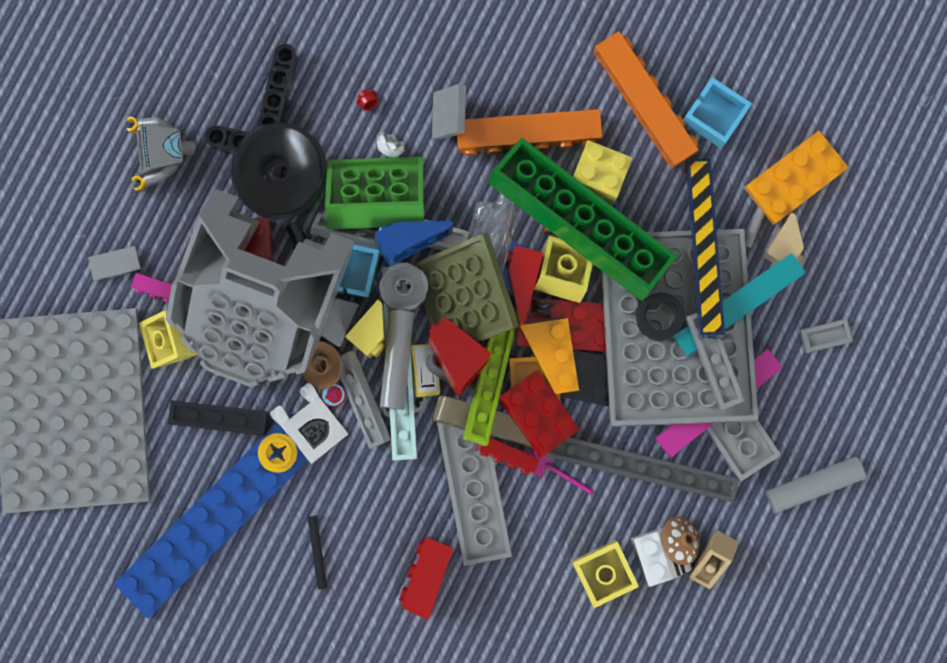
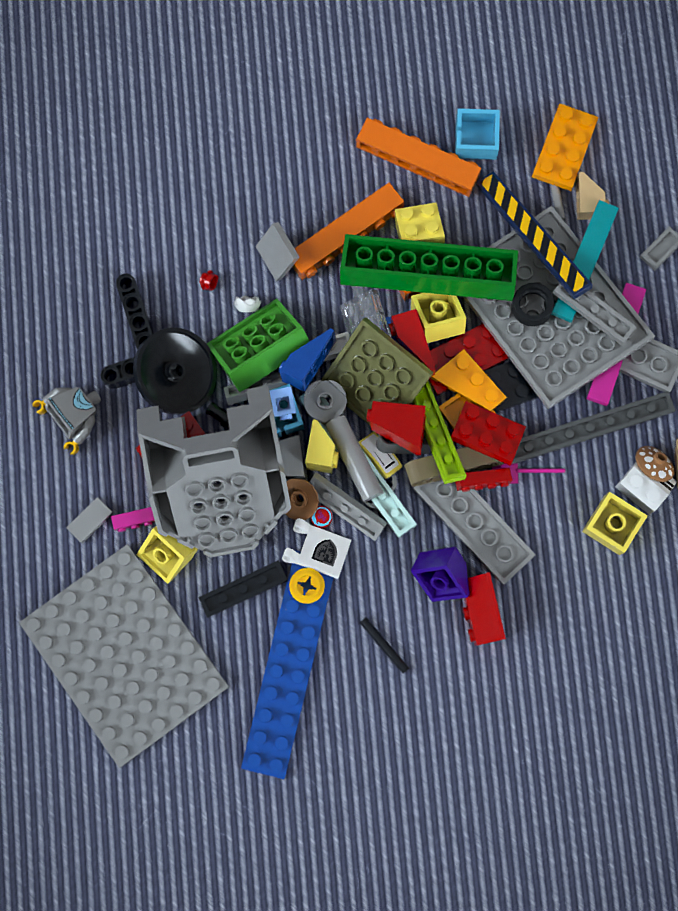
camera: 25 degrees left, 5 degrees down
(359, 256) = (279, 395): none -> light blue brick
(410, 520) = (442, 574): none -> dark purple slope
(541, 307) = (439, 353): black bush -> none

